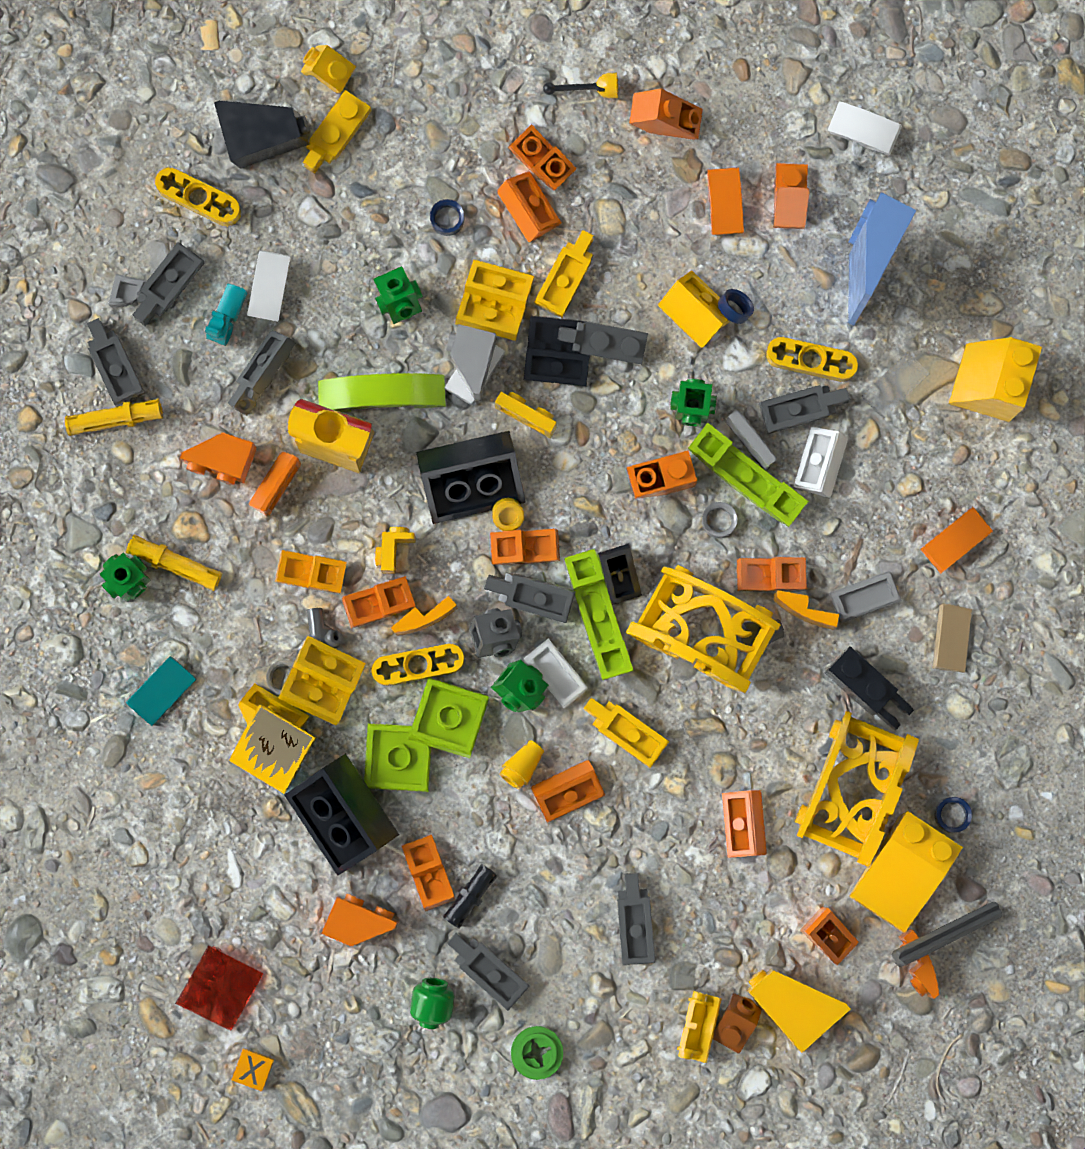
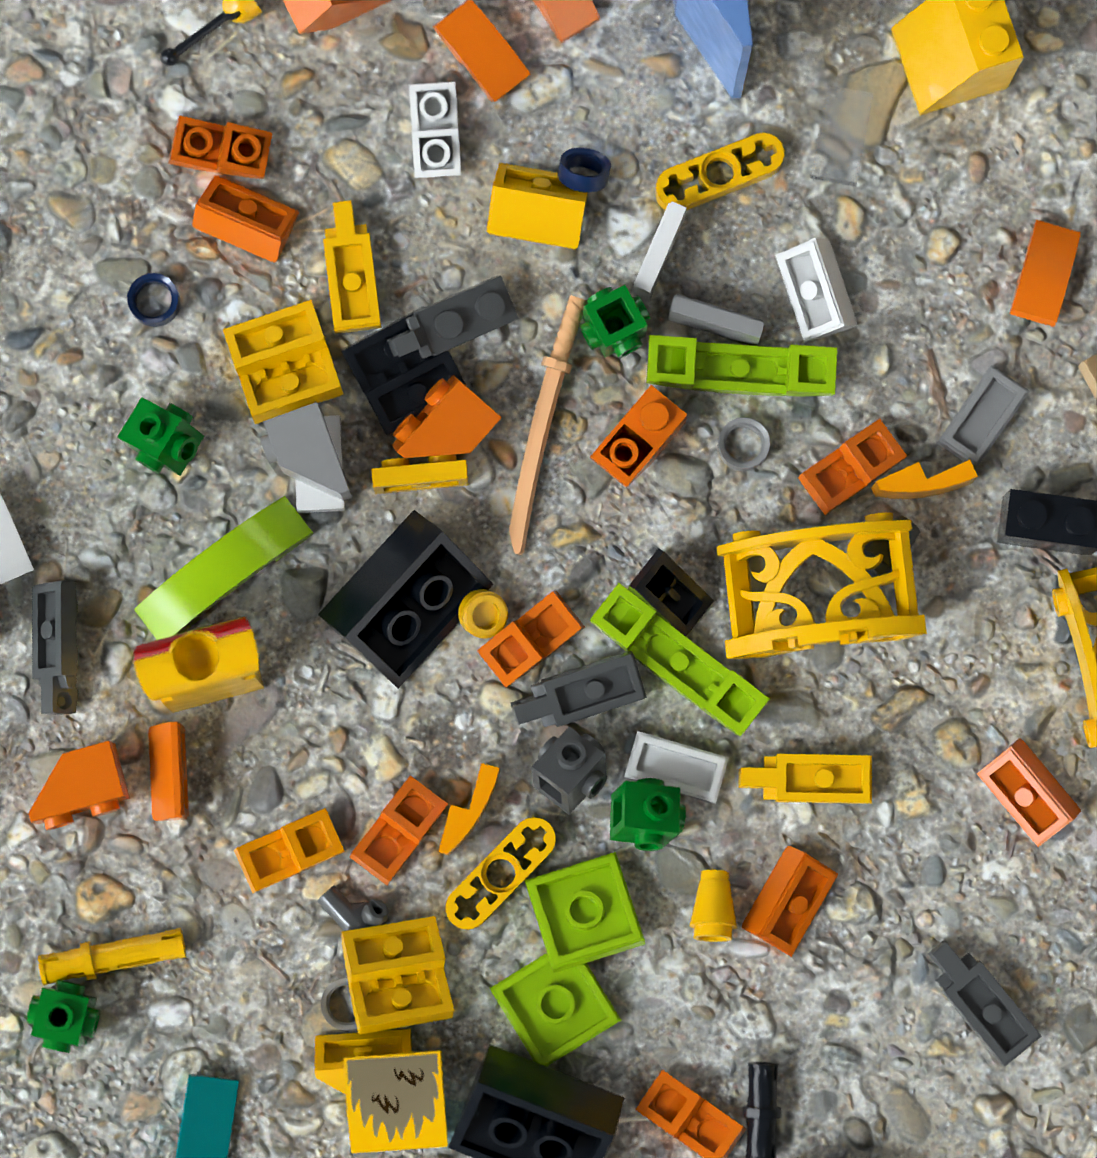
camera: 35 degrees left, 0 degrees up
(386, 555) = (368, 764): yellow bracket -> none
(561, 396) = (447, 425): none -> orange slope
(644, 406) = (556, 368): none -> light nougat sword
(668, 228) = (435, 130): none -> white slope
(746, 380) = (659, 251): none -> white tile
(801, 407) = (748, 239): dark grey hinge -> none

